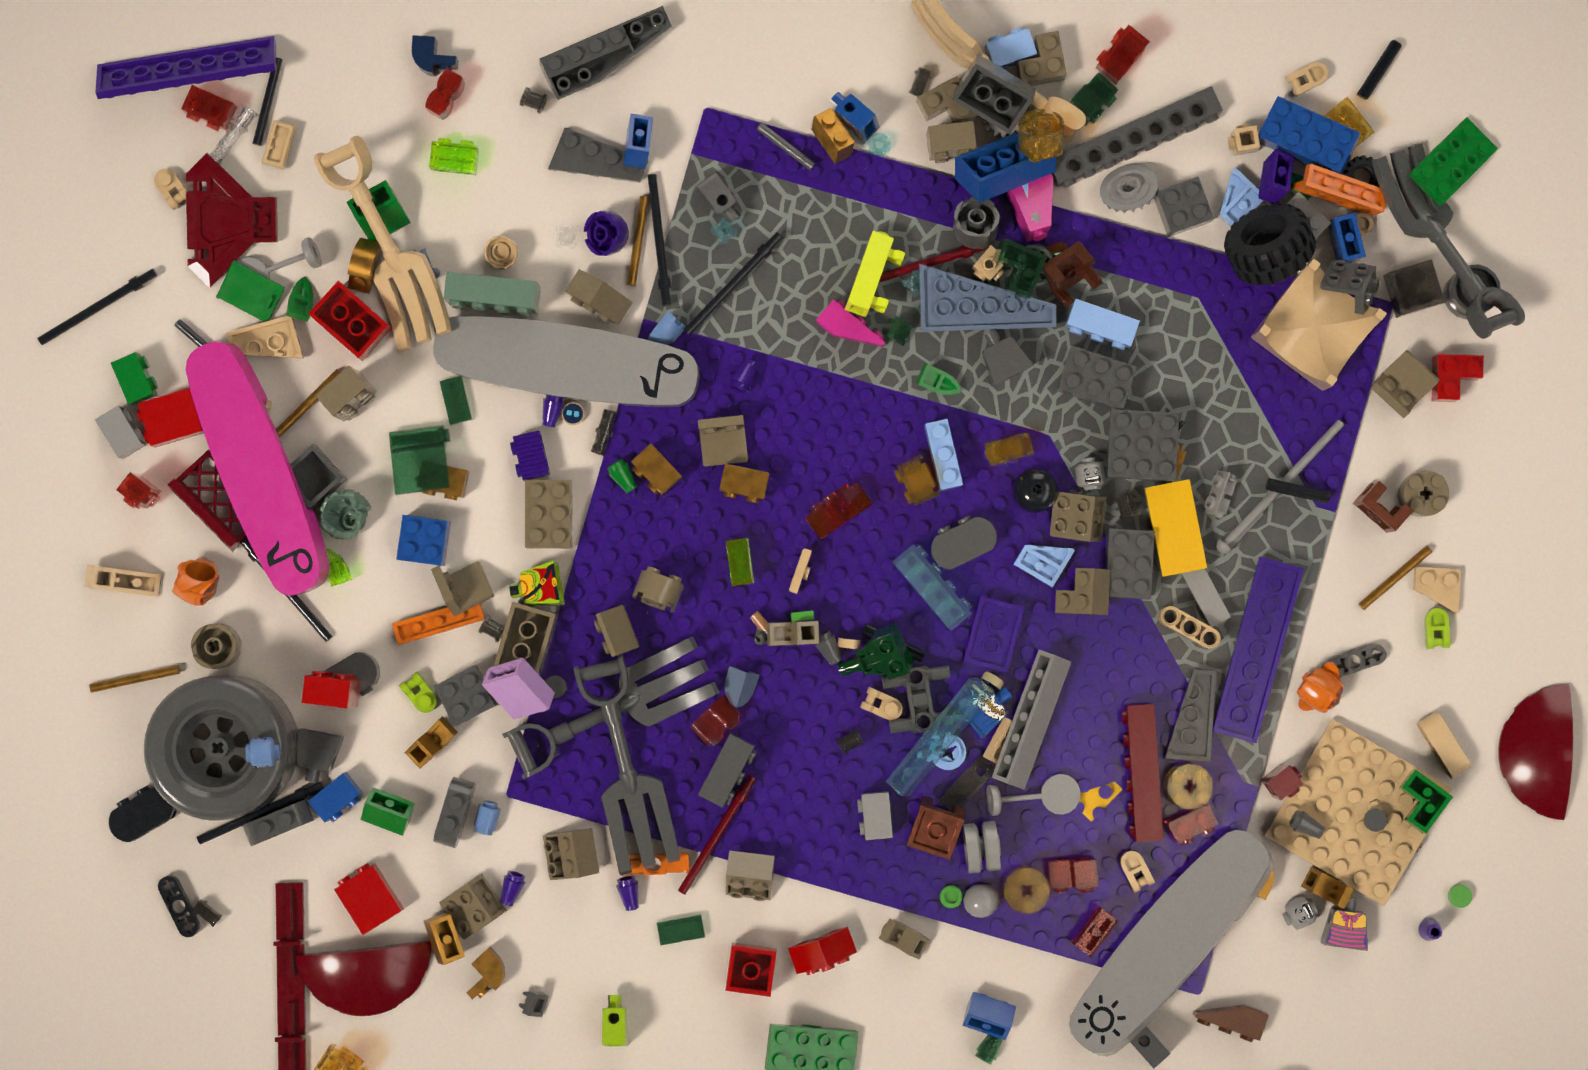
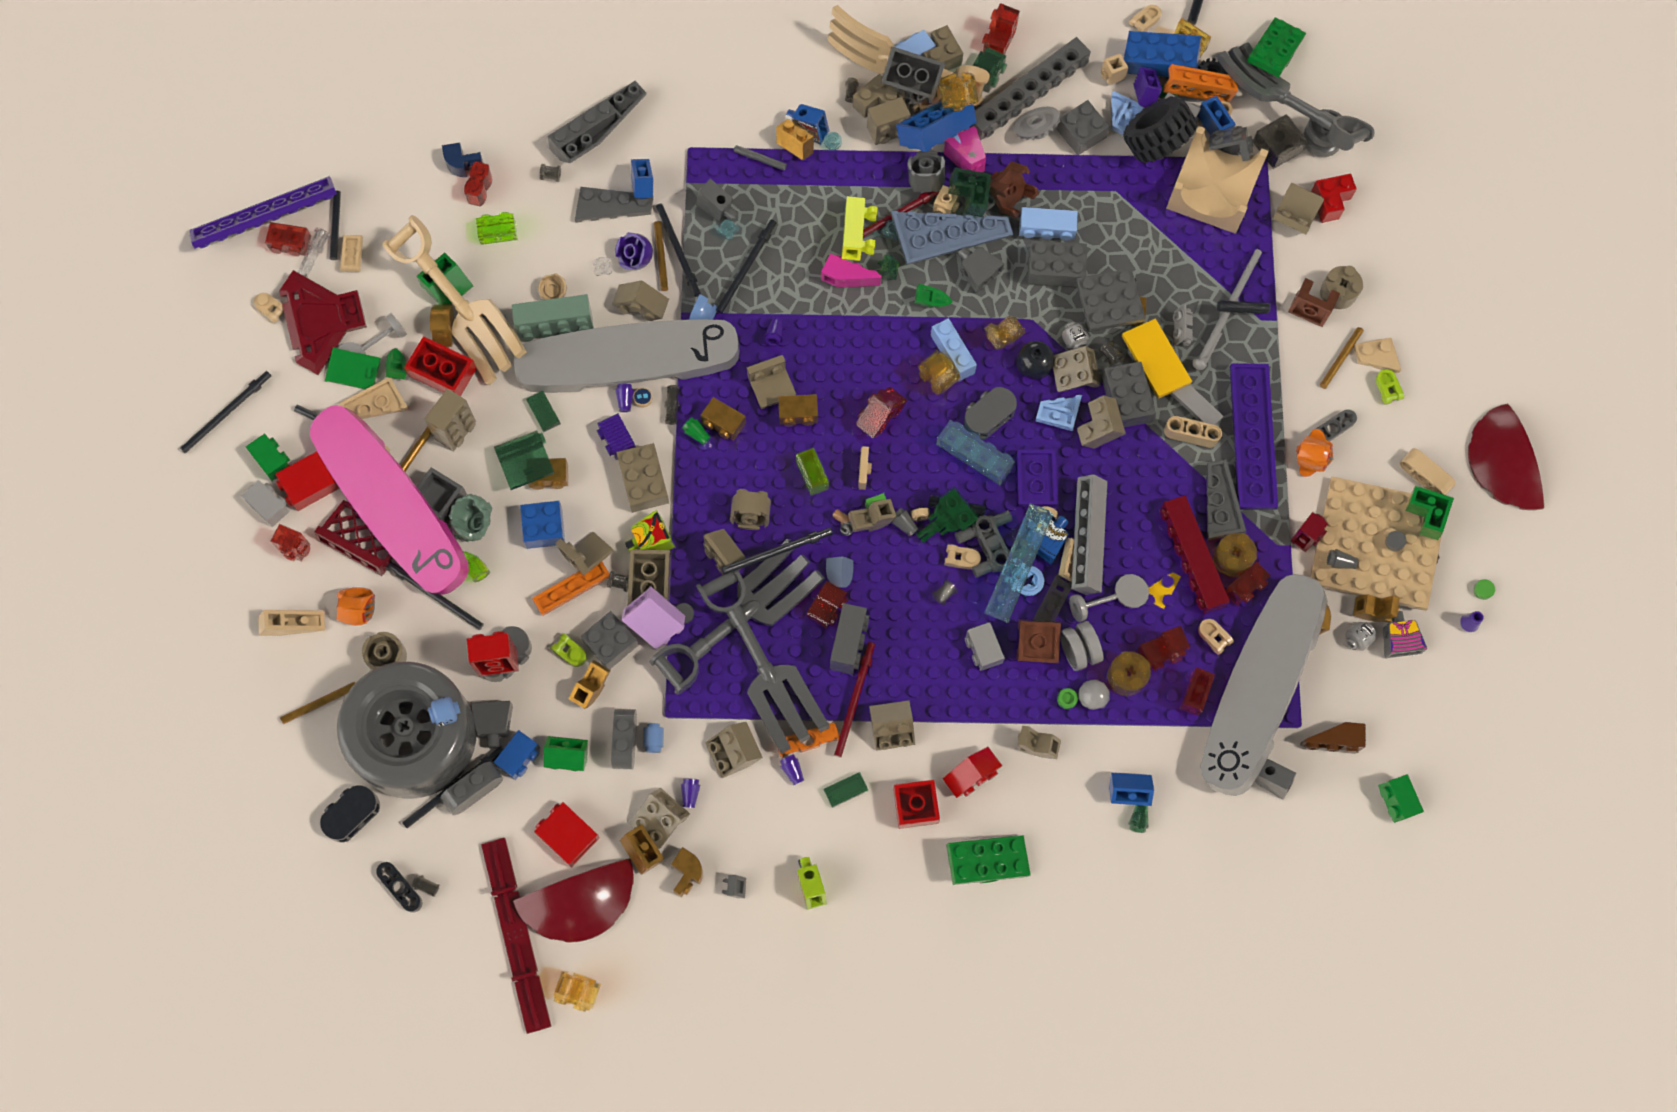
camera: 20 degrees left, 15 degrees down
(717, 644) = (812, 537): none -> black bar

